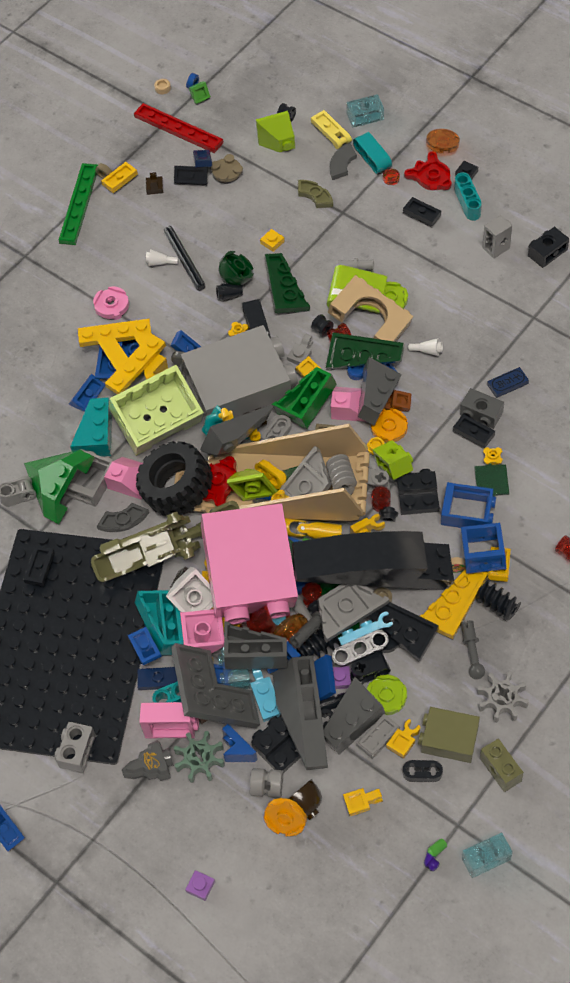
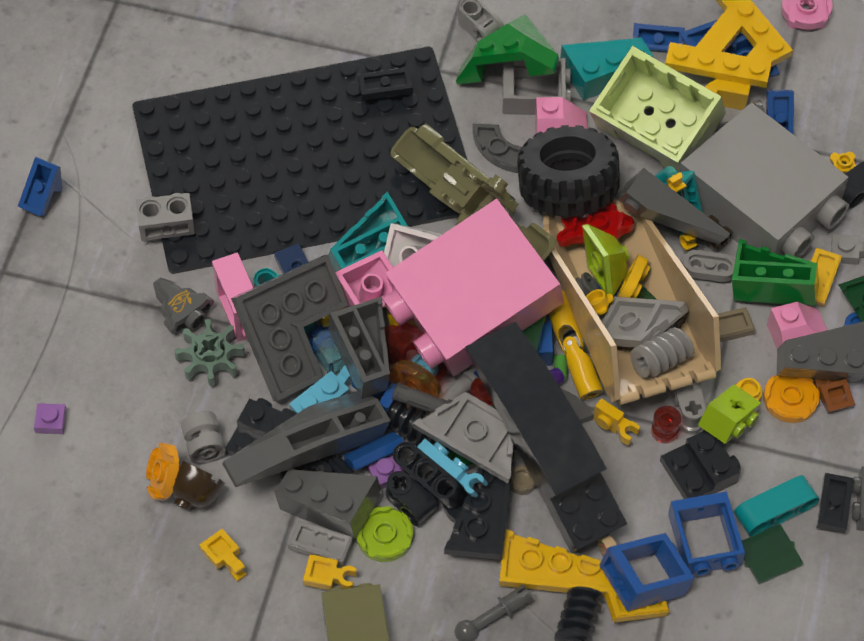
camera: 60 degrees right, 0 degrees up
(144, 646) = (324, 234): blue slope -> none
(239, 749) = (238, 391): blue slope -> none
(388, 514) = (648, 441): black plate -> none
(422, 770) = (288, 614): black beam -> none
(463, 461) = (776, 505): none -> teal beam
(494, 460) = (807, 548): yellow plate -> none

